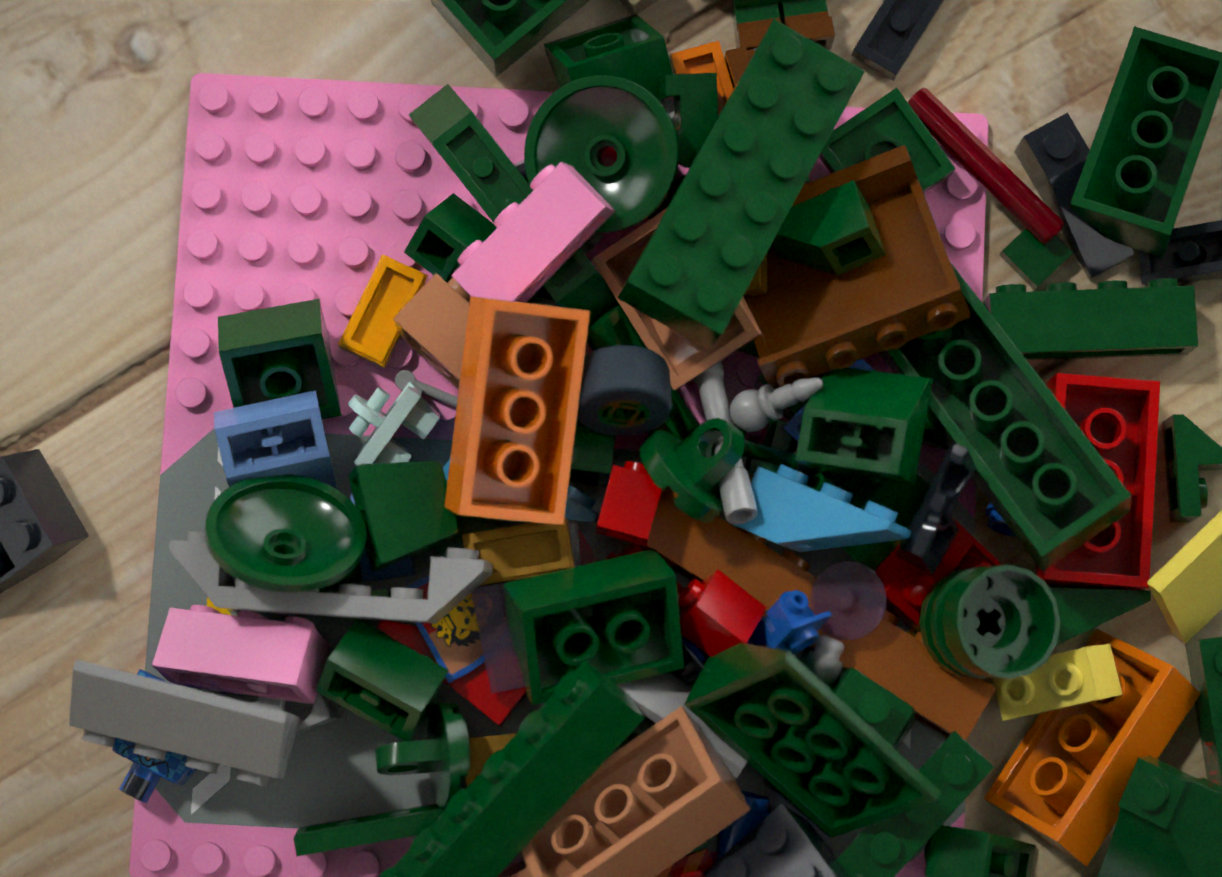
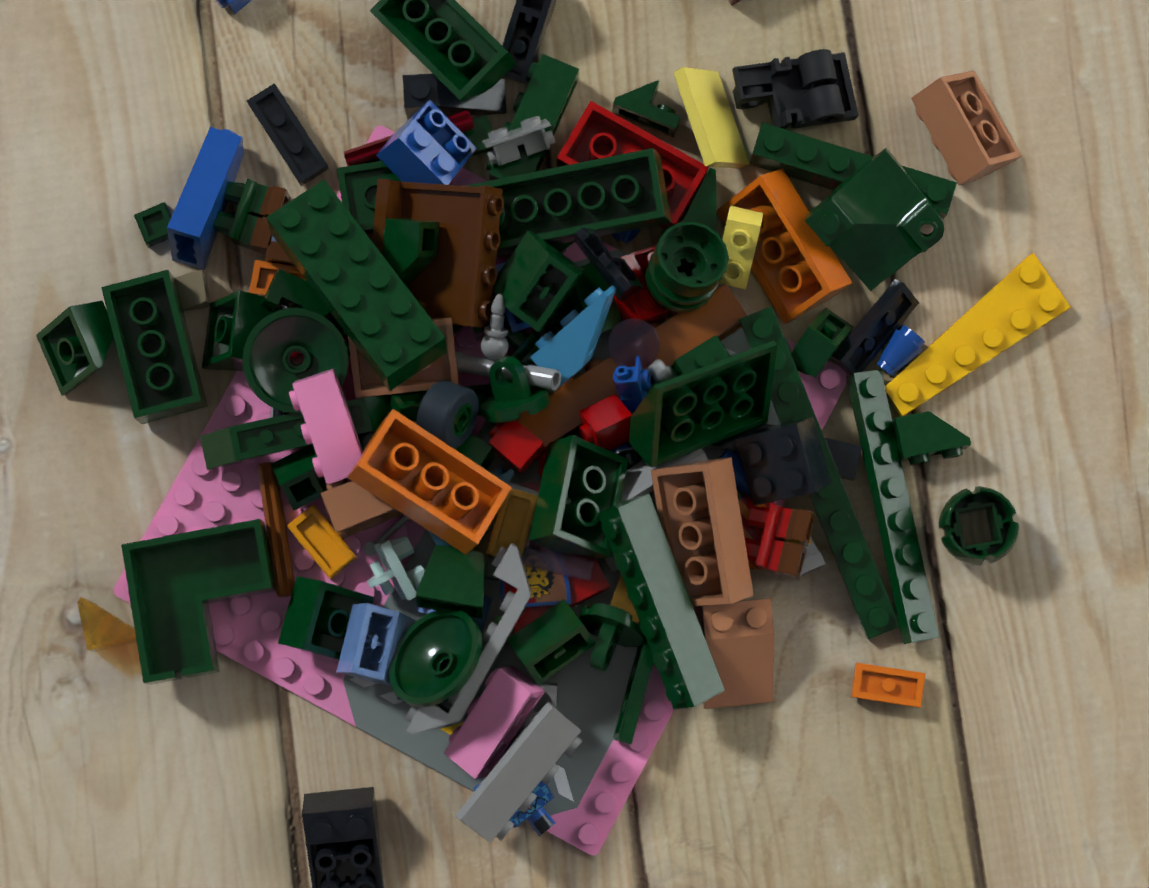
camera: 65 degrees left, 0 degrees up
(140, 84) = (102, 628): none -> clear yellow slope
(224, 146) = (177, 579): none -> dark green piece
(367, 244) = (276, 530): none -> dark orange axle
(982, 193) = (427, 148): none -> blue slope
(1070, 321) = (530, 134): none -> light grey hinge

